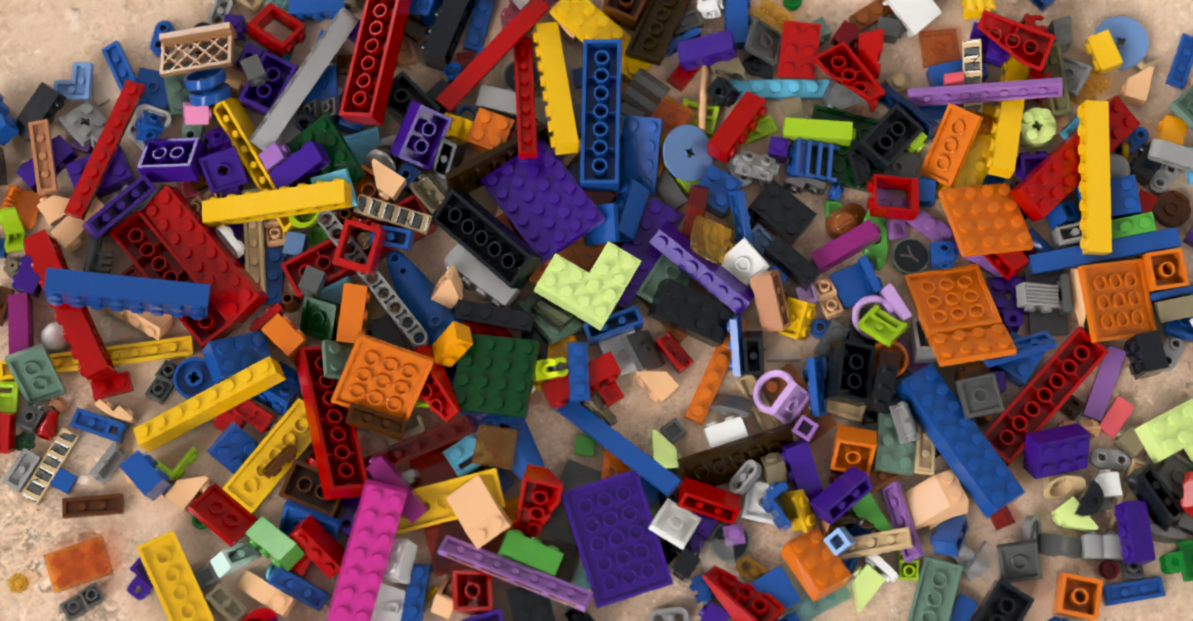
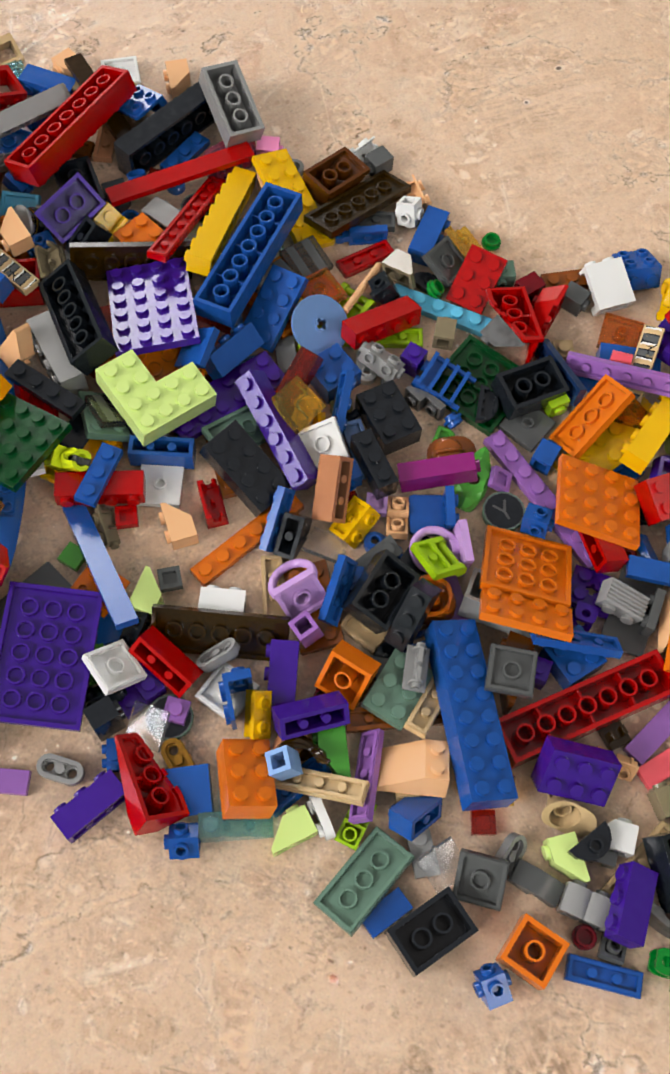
camera: 20 degrees right, 10 degrees down
(643, 351) = (179, 487): dark grey plate -> none
(706, 50) = (384, 244): dark purple brick -> none
(730, 403) = (247, 578): flat silver slope -> none
(767, 73) = (435, 288): none -> green plate
(773, 468) = (254, 657): dark tan brick -> none
(819, 130) = (470, 358): lime brick -> none
(910, 185) = (514, 431): red window -> none
(1110, 459) = (635, 811): light grey plate -> none

